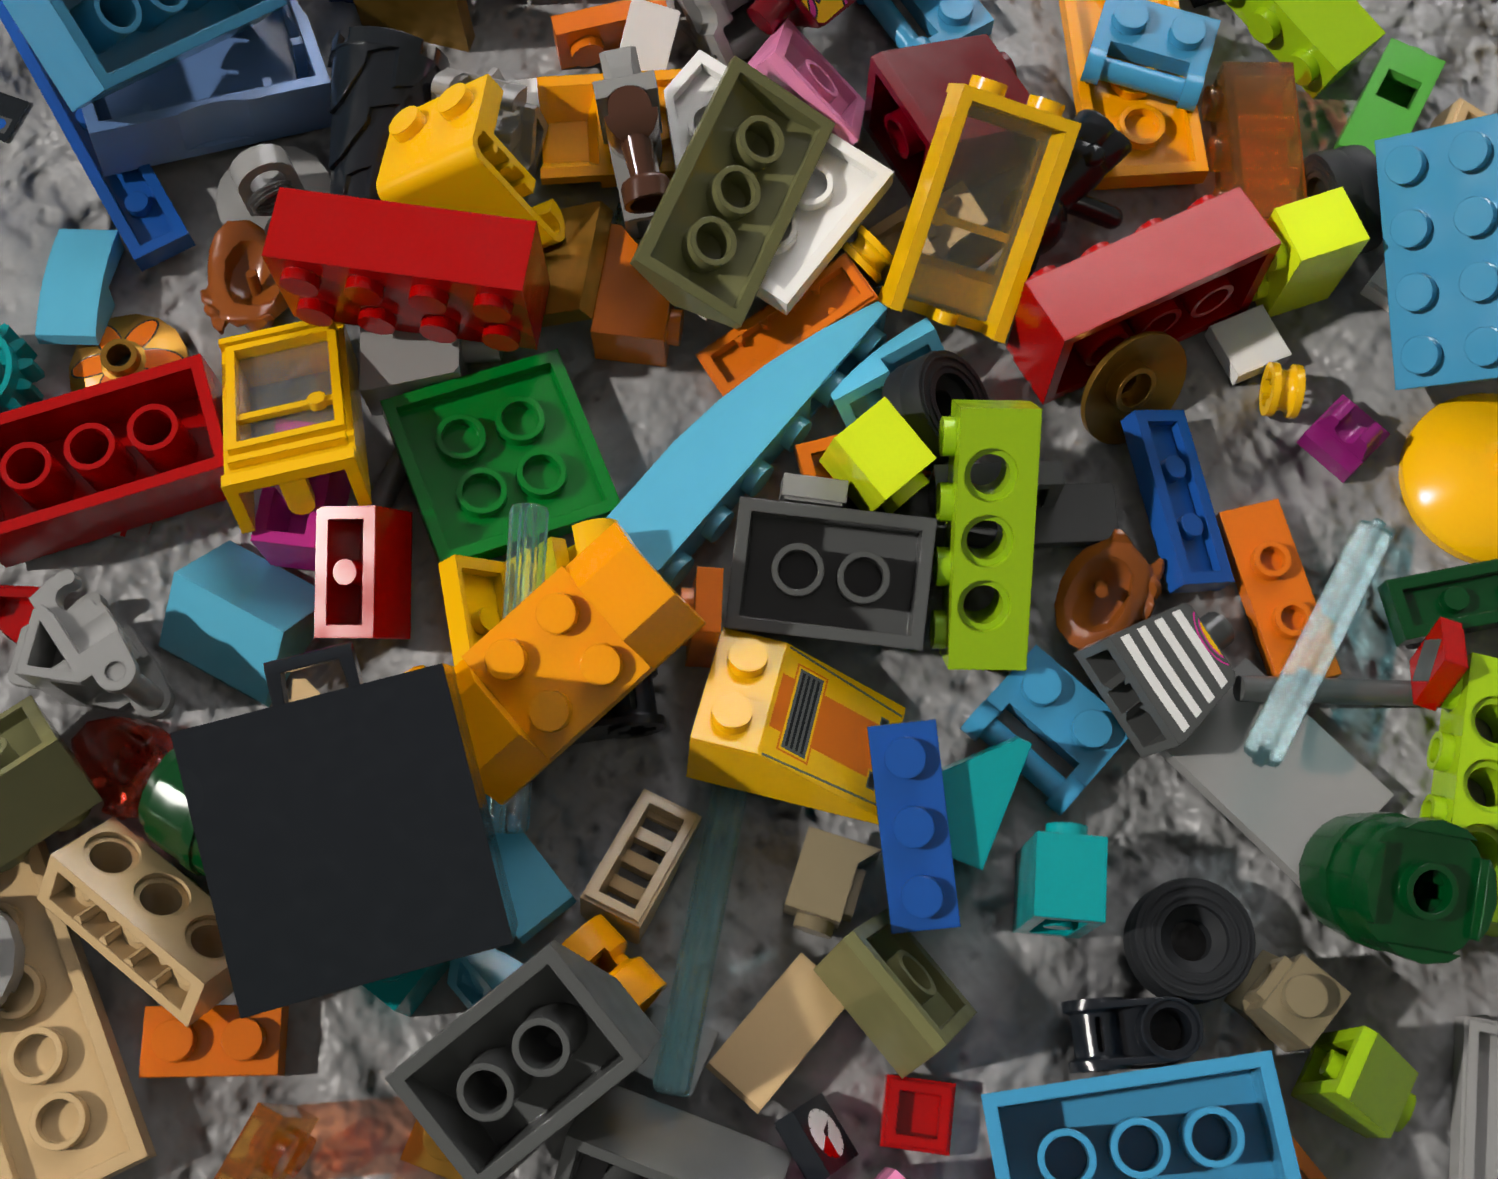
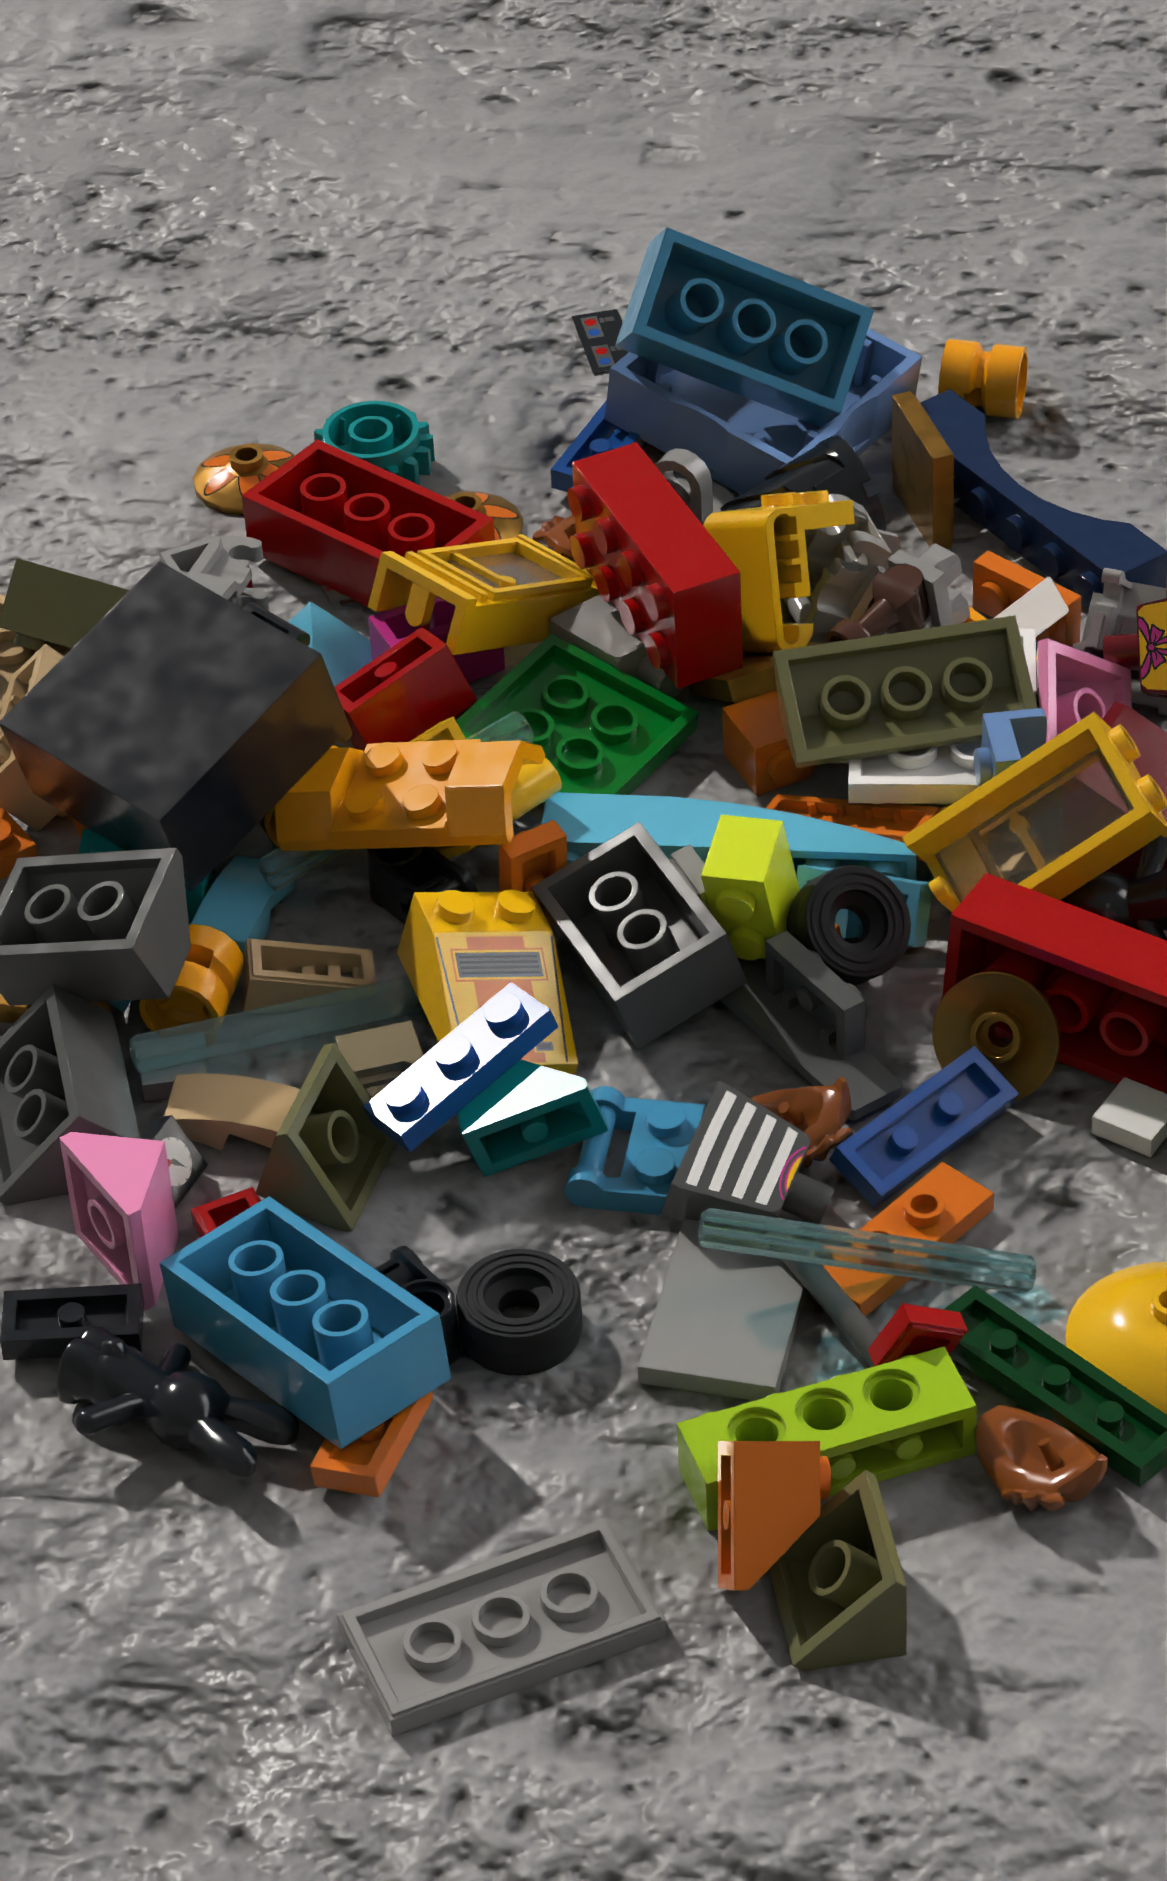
camera: 60 degrees right, 30 degrees down
(75, 287) = (497, 460): medium azure slope -> none
(871, 177) = (1007, 739): none -> medium blue bracket
(999, 633) = (750, 983): lime brick -> none
(1061, 882) = (488, 1180): teal brick -> none
(1282, 390) = (1105, 1147): yellow bush -> none
(1288, 999) = (517, 1367): dark tan window -> none
(1343, 438) = (1106, 1216): magenta tile -> none
(1358, 1082) = (476, 1437): lime slope -> none
(1399, 884) = (660, 1350): dark green piece -> none

